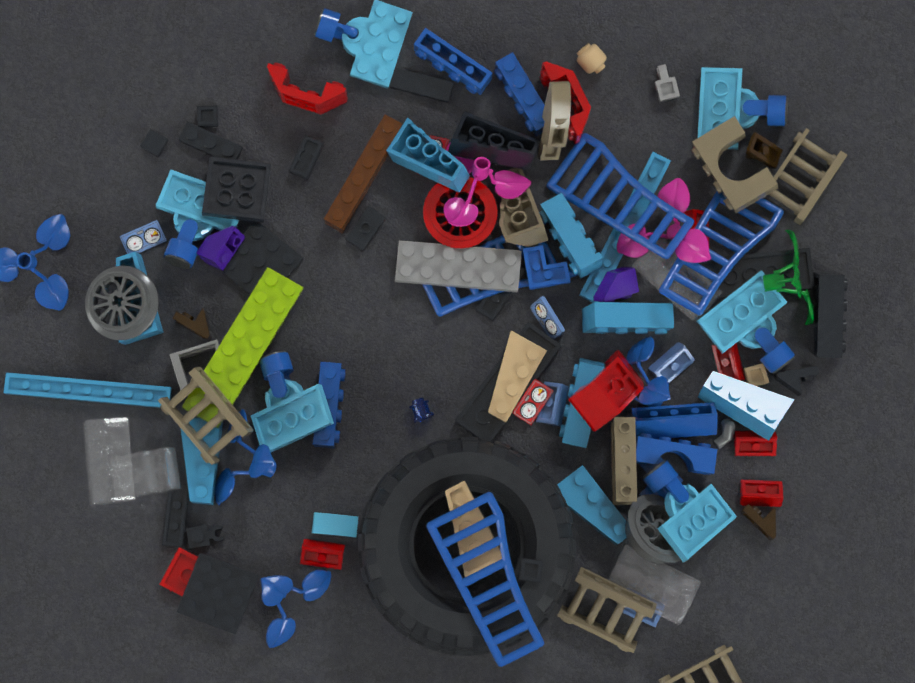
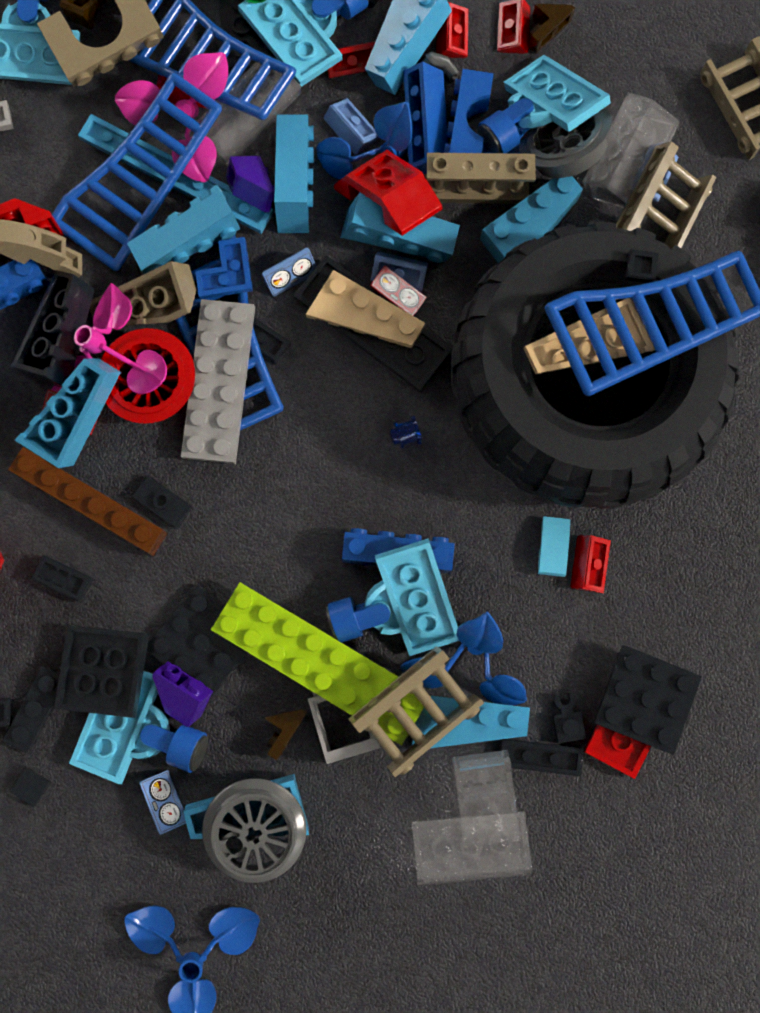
camera: 90 degrees left, 0 degrees up
(85, 390) = (371, 882): dark azure plate -> none
(276, 588) = (652, 615): blue plant -> none
(756, 375) = (367, 26): tan tile -> none

